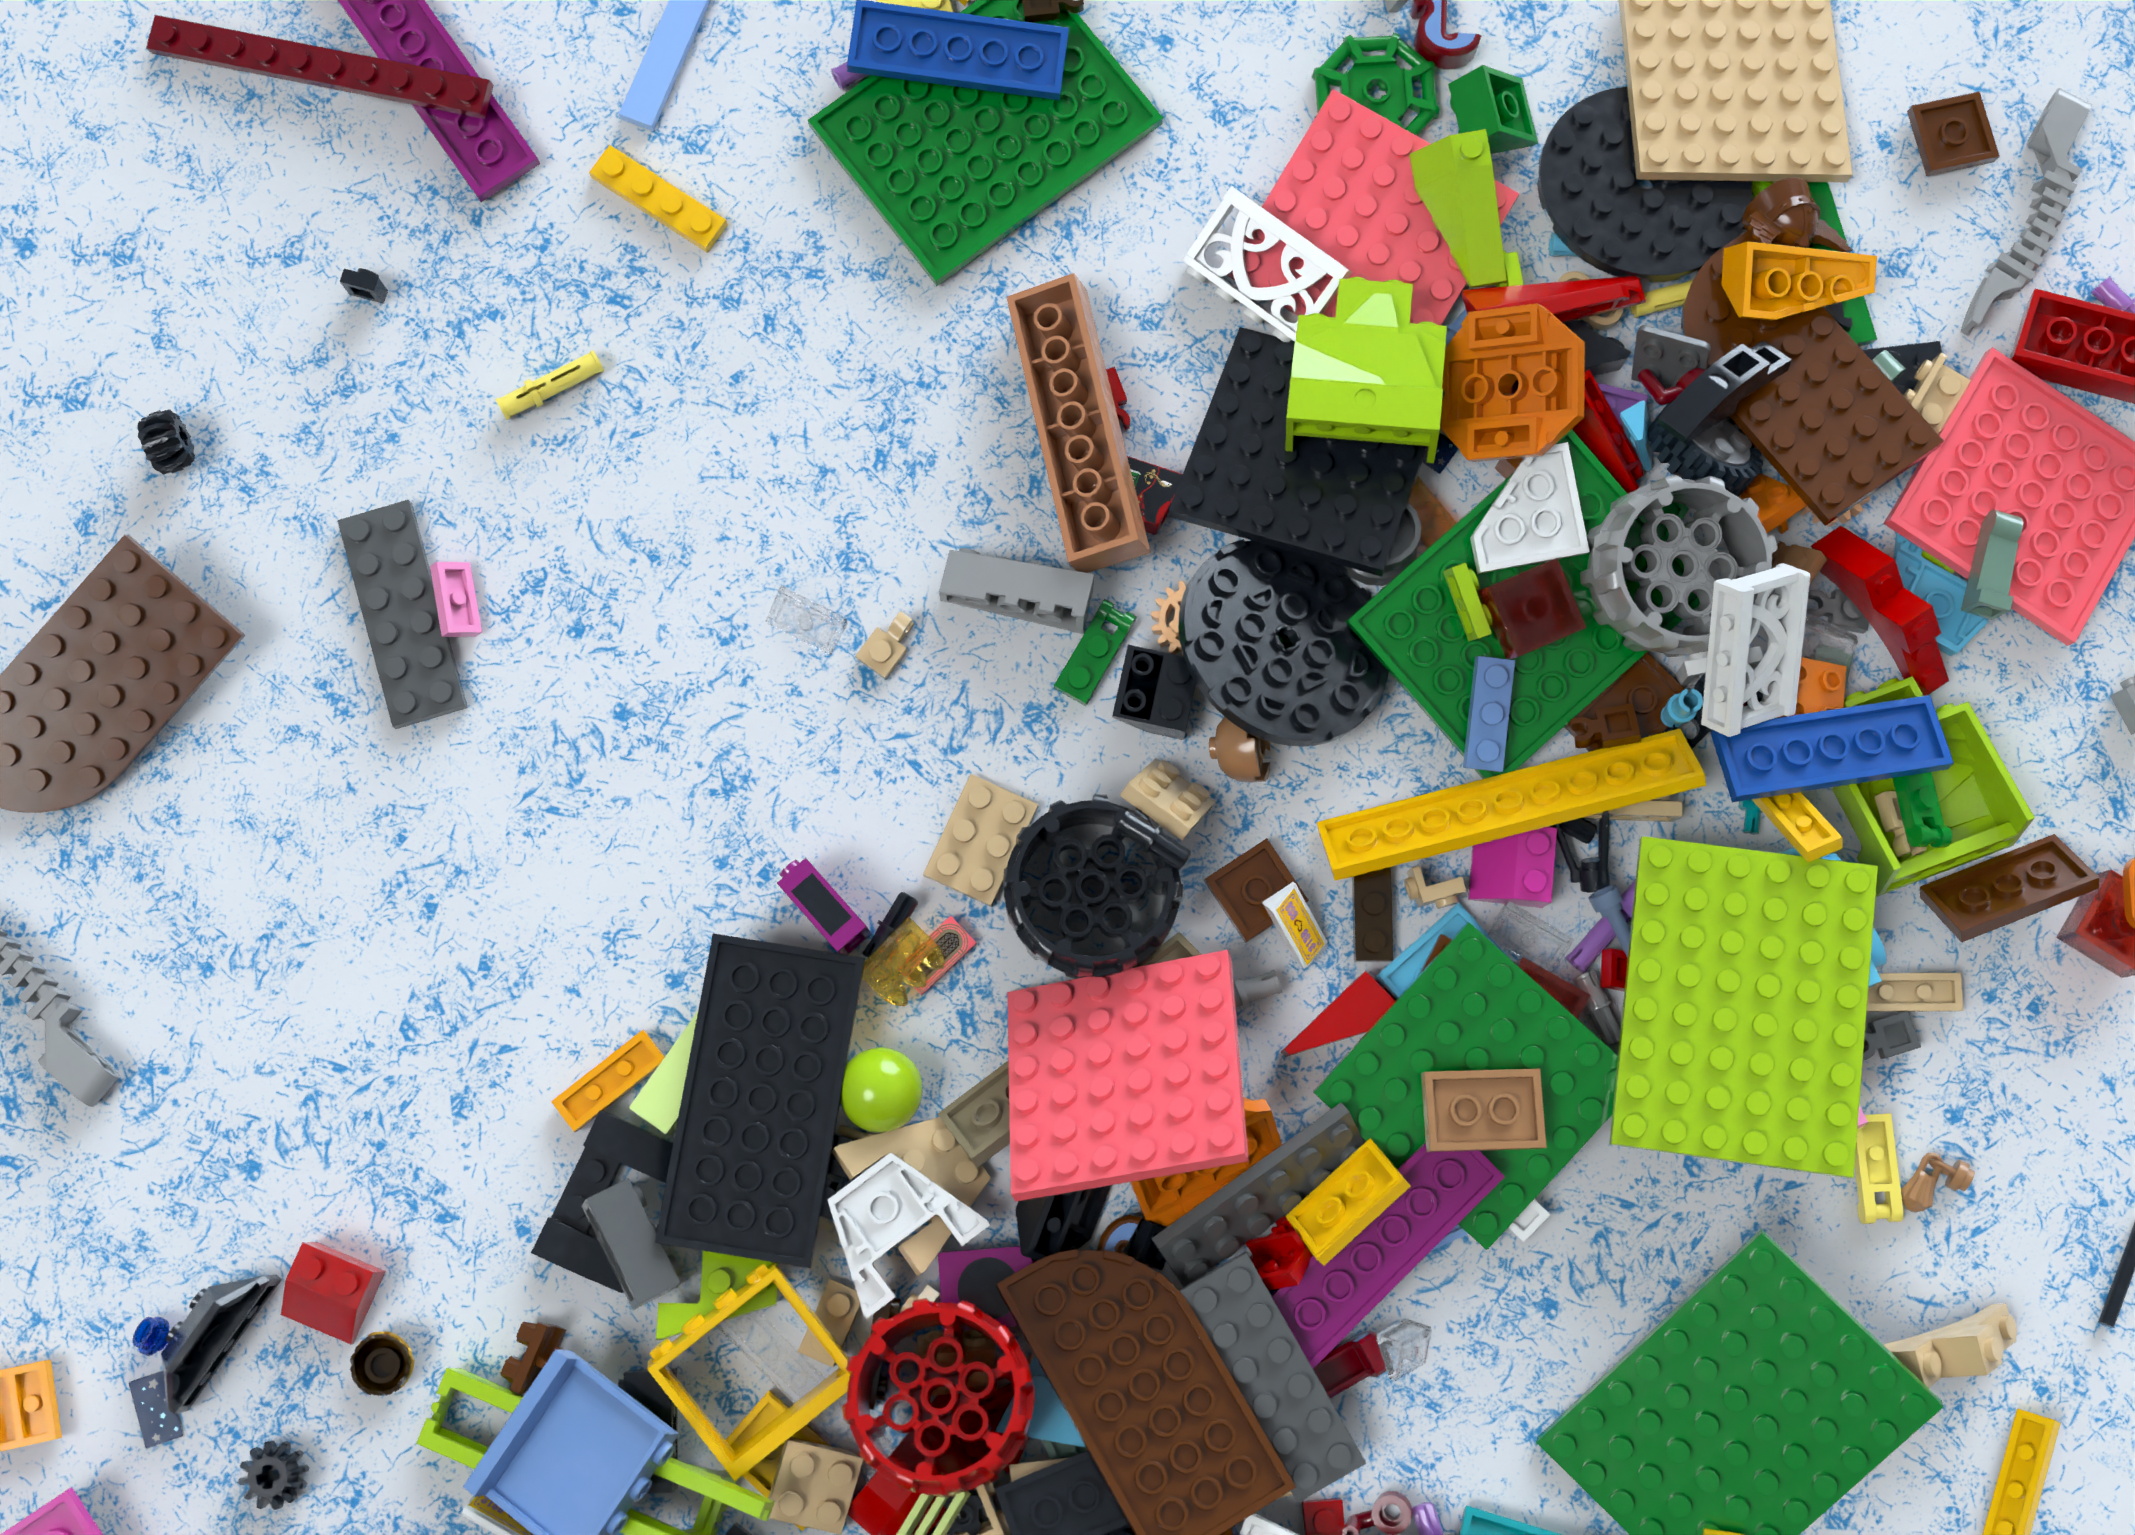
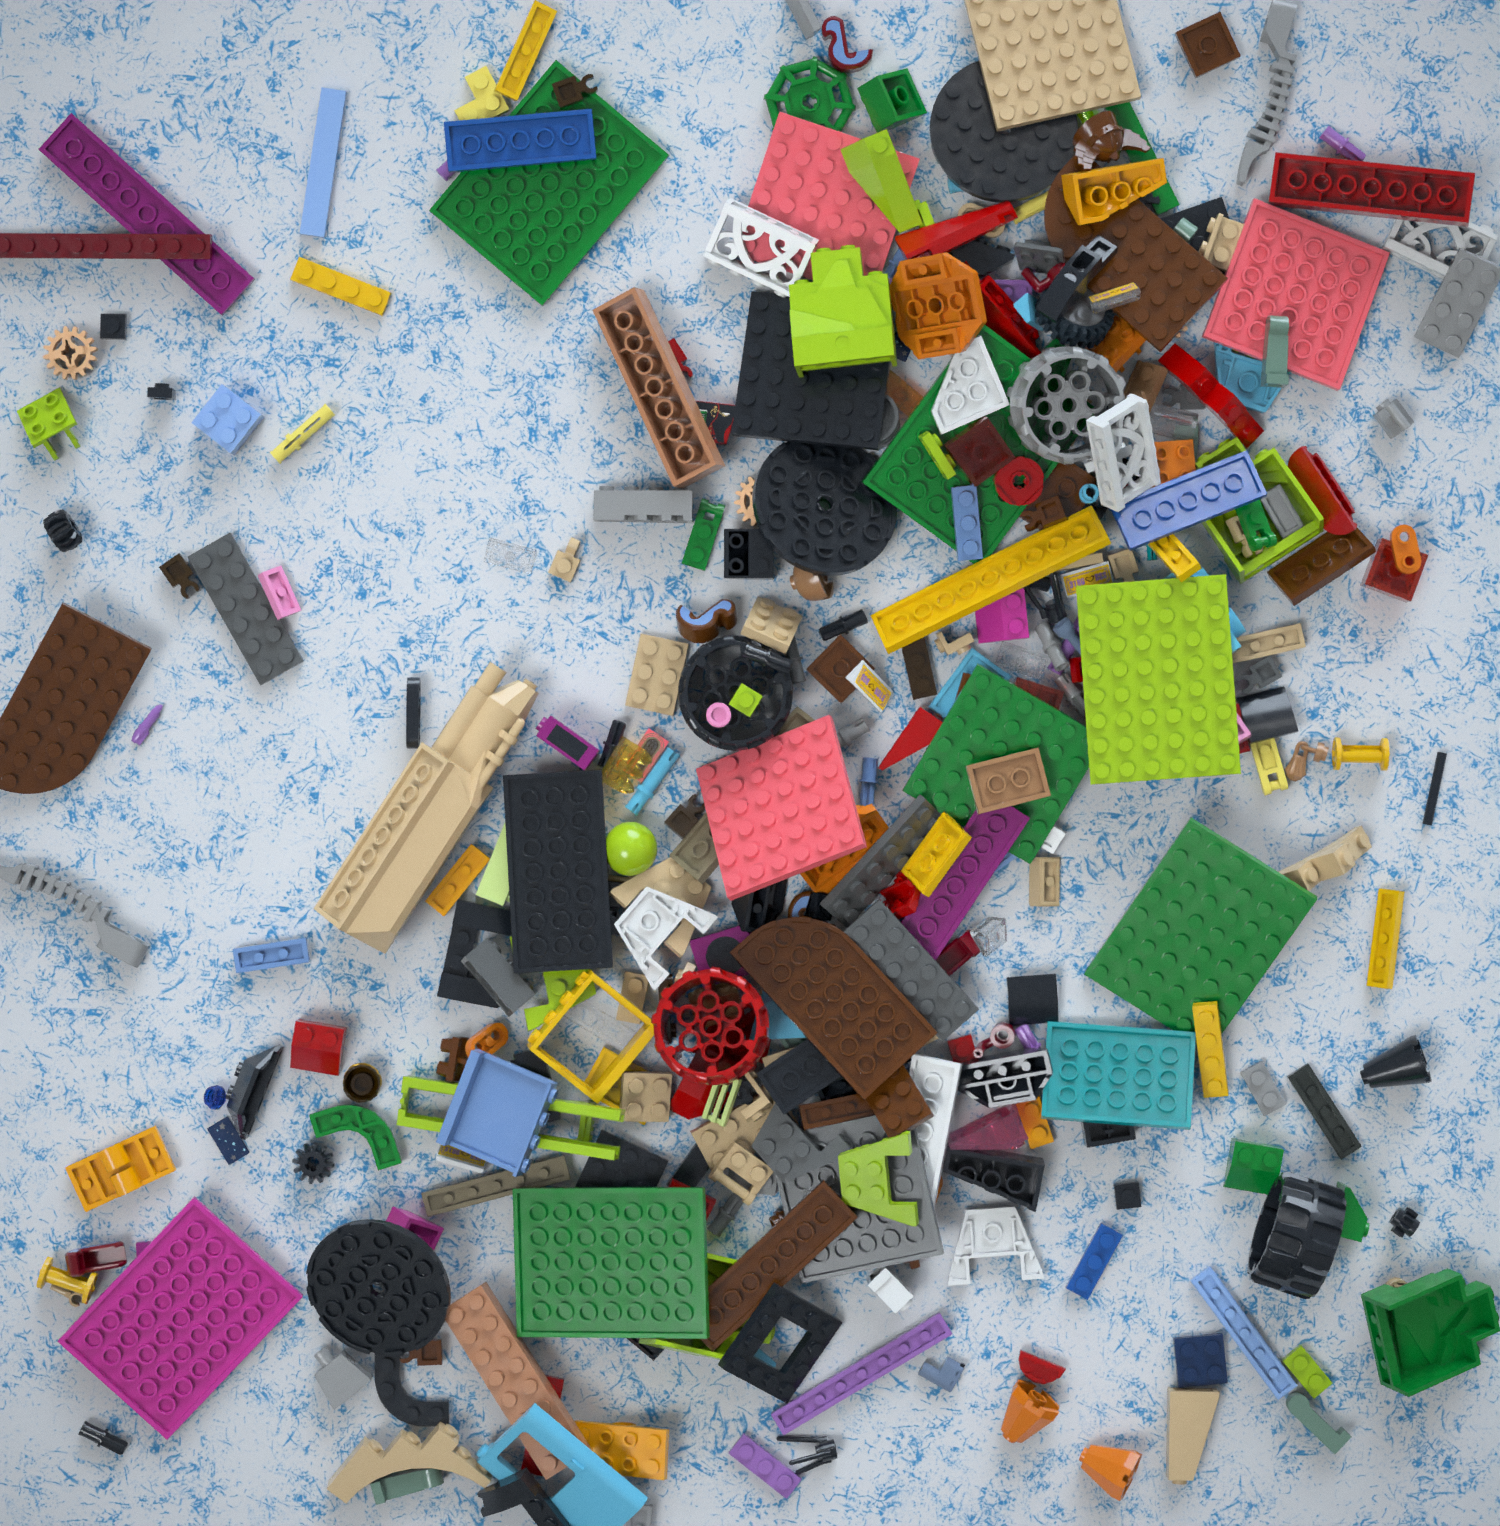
camera: 10 degrees left, 10 degrees up
(191, 283) = (47, 418): none -> lime plate
(204, 753) = (143, 728): none -> medium lavender piece
(250, 203) = (73, 363): none -> light nougat gear
(298, 1133) = (271, 955): none -> medium blue plate
(317, 540) = (178, 573): none -> dark brown plate
(323, 184) = (113, 326): none -> black plate
(371, 1429) = (364, 1122): none -> green plate
(448, 340) = (228, 419): none -> light blue brick
(578, 969) = (426, 813): none -> tan piece
(586, 1338) = (485, 1042): none -> orange plate
(606, 816) = (413, 712): none -> black beam
(937, 996) = (652, 781): none -> medium azure pin
(972, 1063) = (683, 818): none -> dark brown plate
(1060, 909) = (718, 715): none -> bright pink tile
(1074, 778) = (708, 624): none -> reddish brown animal
(1106, 896) = (745, 700): none -> lime plate
(1191, 870) = (796, 671): none -> dark grey axle
(1264, 1065) = (868, 781): none -> medium blue axle
(1273, 827) = (843, 625): none -> black axle
(1449, 1465) = (1032, 999): none -> black slope
(1500, 1283) = (1044, 881): none -> tan slope
(1580, 925) = (1052, 646): none -> light grey pin
(1600, 674) = (1032, 482): none -> red plate
(1626, 835) = (1089, 575): none -> slope
(1708, 826) = (1123, 565): none -> tan plate
(1774, 432) = (1114, 297): none -> clear slope
(1895, 1102) = (1267, 714): none -> black slope
(1960, 801) = (1281, 511): none -> light grey tile
(2045, 832) = (1323, 491): none -> red brick
(2053, 1198) = (1360, 754): none -> yellow hose

